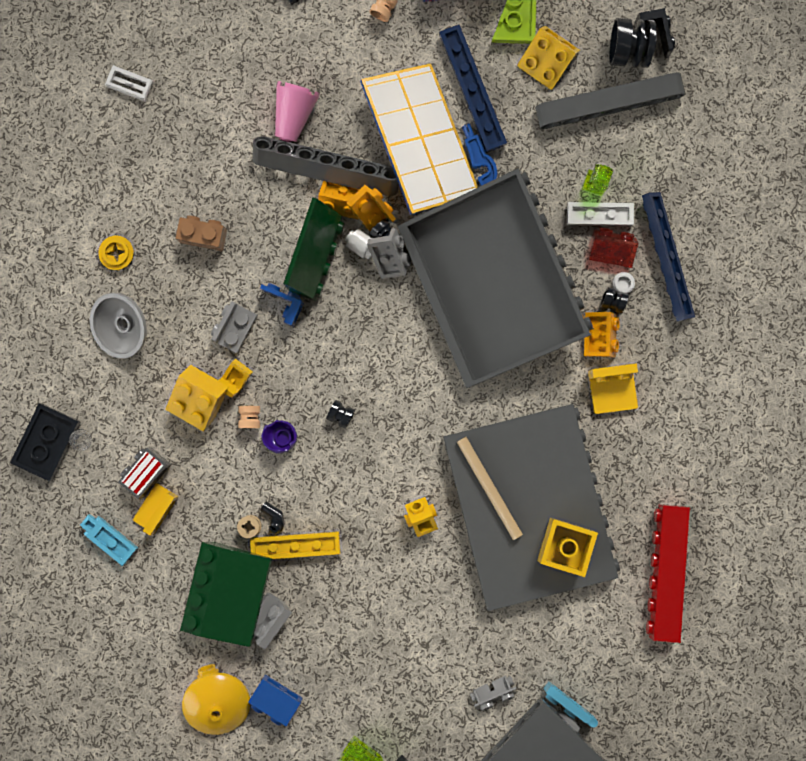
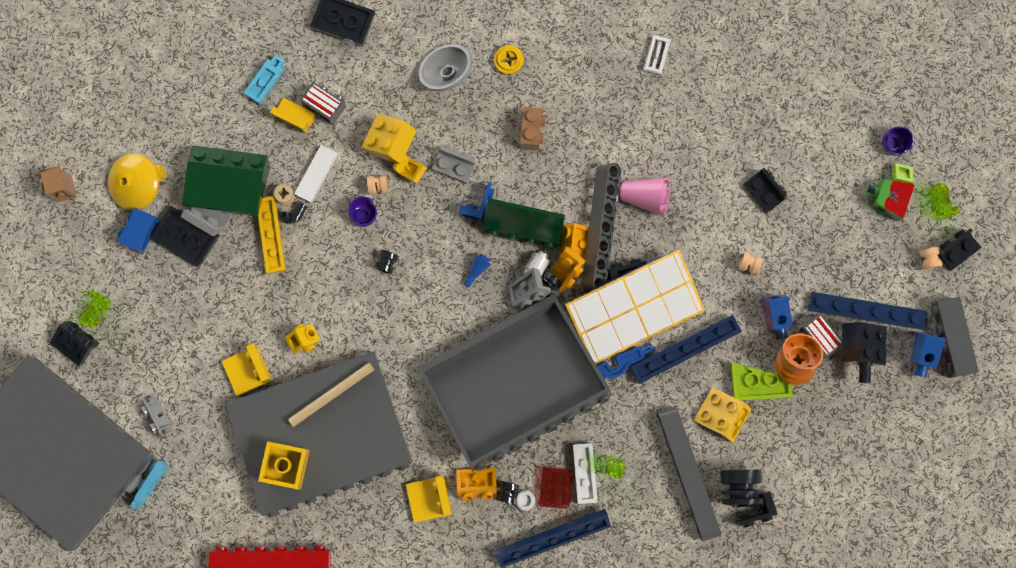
camera: 80 degrees right, 5 degrees down
(228, 487) = (316, 174): none -> white tile
(288, 648) = (183, 237): none -> black plate
(355, 309) = (478, 266): none -> blue cone
(378, 157) = (619, 267): none -> black bracket
(450, 584) = (247, 370): none -> yellow bracket

